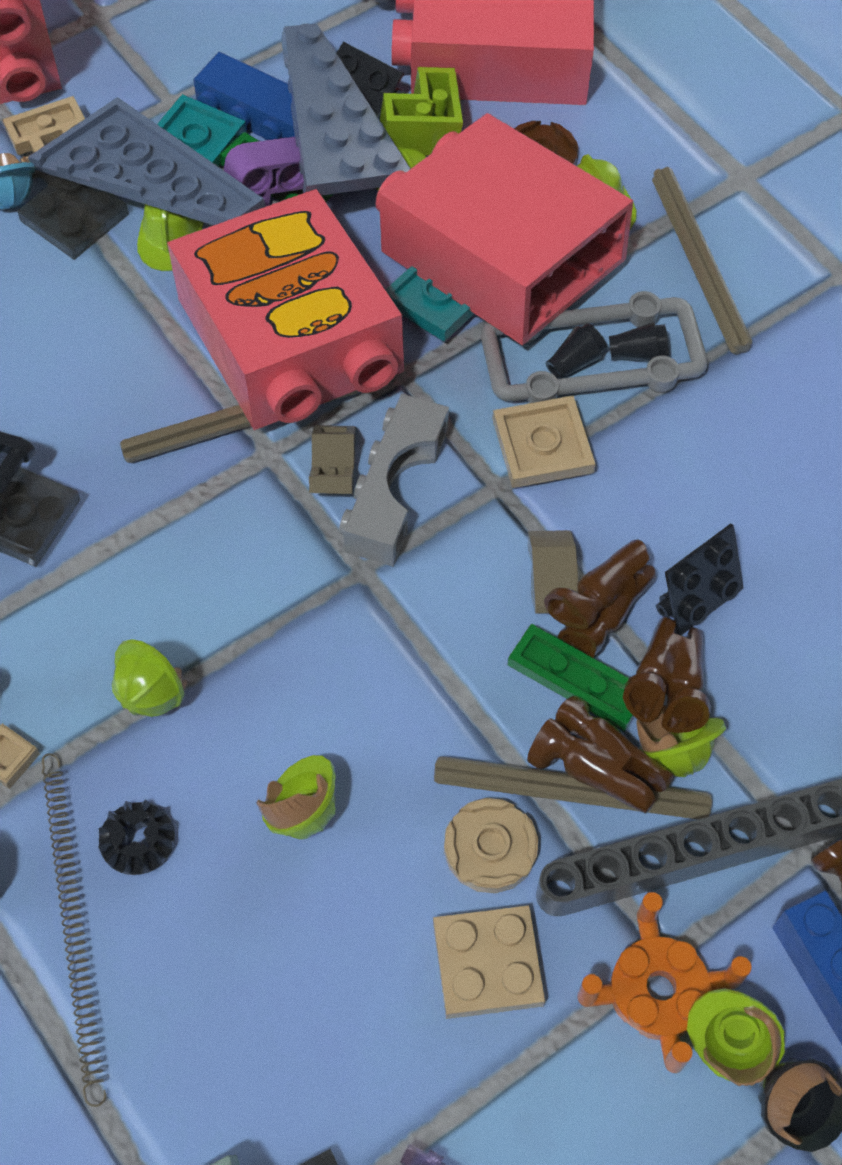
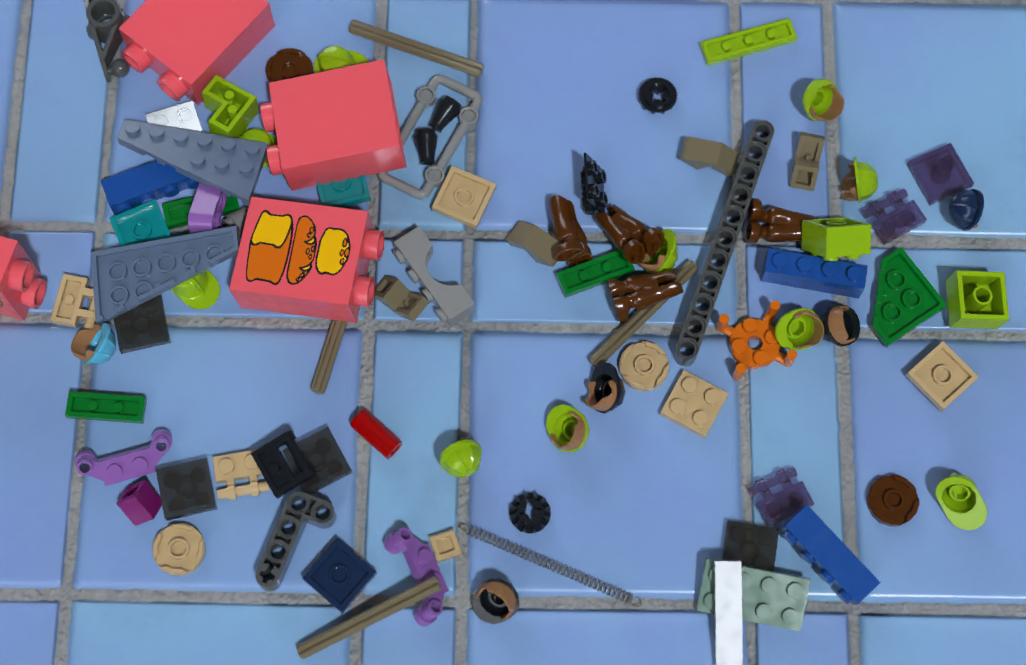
camera: 55 degrees left, 10 degrees up
(111, 557) = (376, 434): none -> red axle
(404, 813) = (605, 389): none -> black piece

